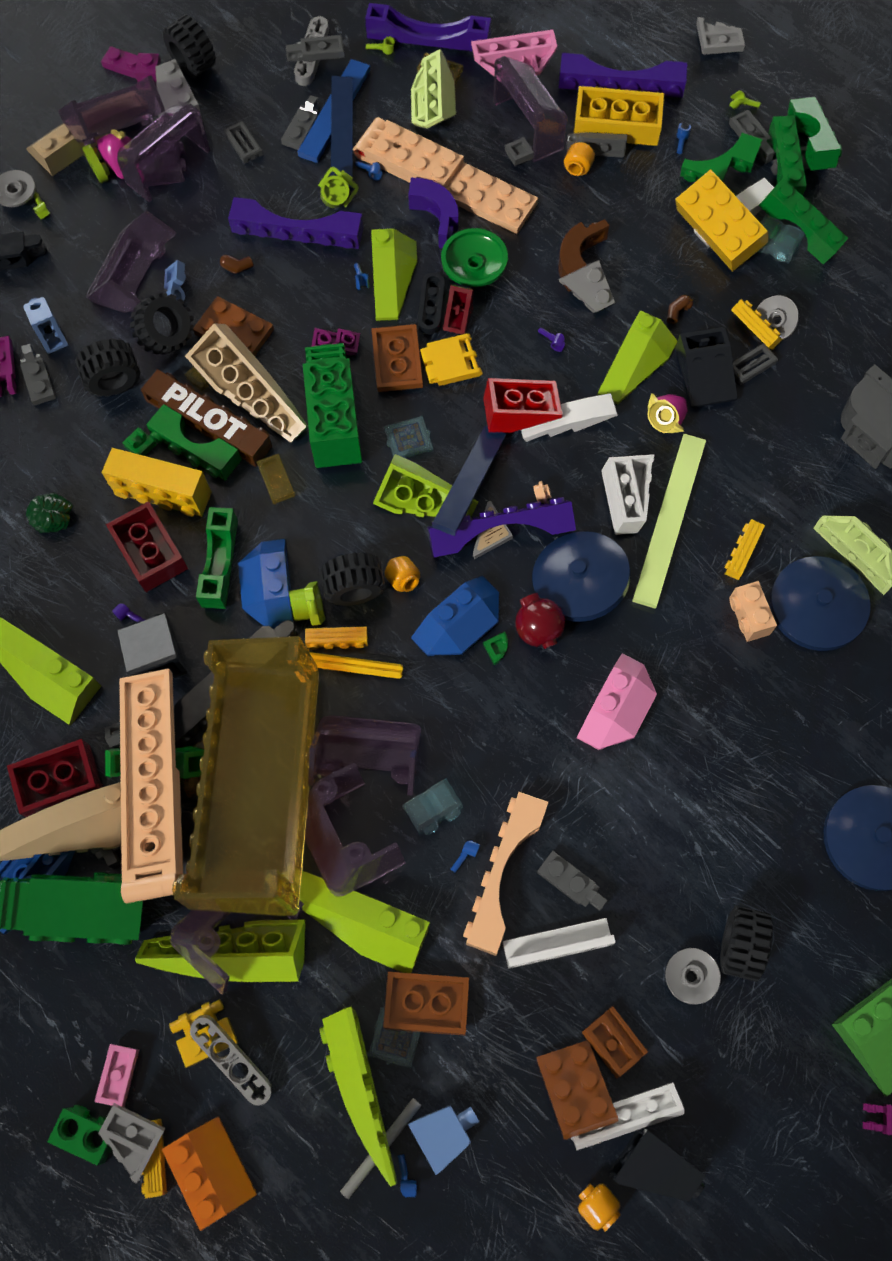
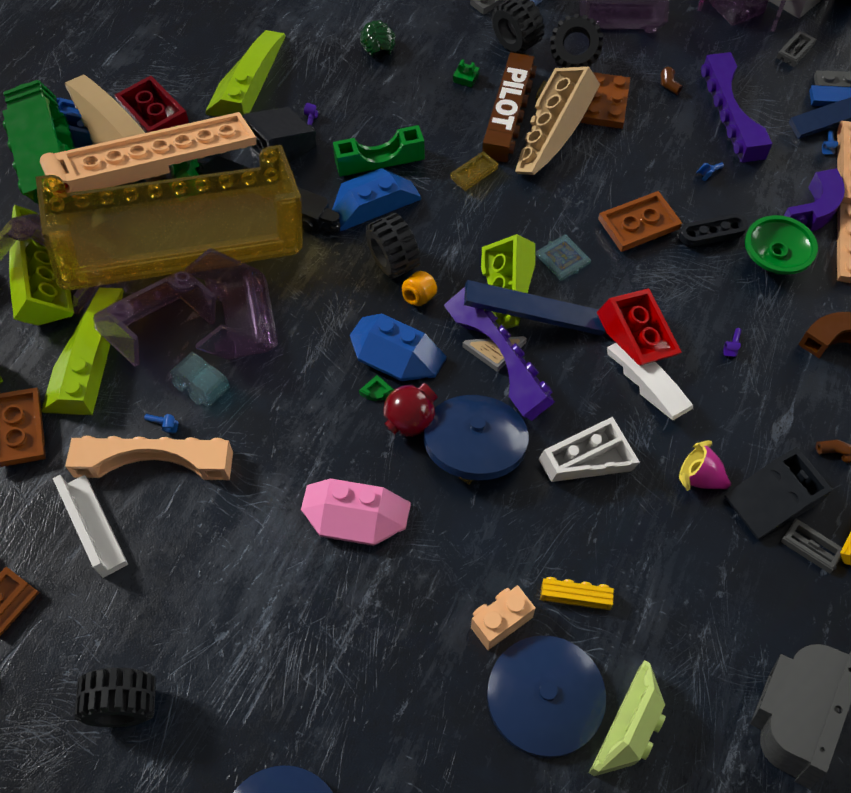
camera: 70 degrees right, 10 degrees down
(146, 546) = (370, 103): dark red brick -> none
(157, 482) = (428, 89): yellow brick -> none
(174, 279) = (630, 45): medium blue plate -> none
(216, 457) = (474, 120): green arch -> none
(307, 604) = (355, 225): lime piece -> none
(331, 406) = (558, 180): green piece -> none
(336, 189) = (785, 120): lime piece -> none
(336, 637) = (340, 259): yellow piece -> none
(349, 338) = (630, 171): magenta slope -> none
(357, 665) = (323, 308): yellow axle -> none
(392, 270) = (739, 185): lime wedge -> none
(448, 360) = (660, 263): yellow plate -> none
(458, 309) = (717, 252): dark red slope -> none
(542, 492) = (555, 378): light nougat plate -> none
(571, 881) = (156, 521): dark grey hinge -> none
(590, 286) = (809, 352): light grey wing -> none
(641, 353) = (763, 425): lime wedge -> none
(669, 521) = (581, 508): yellowish green tile -> none
(705, 970) = (71, 650): light grey dish -> none

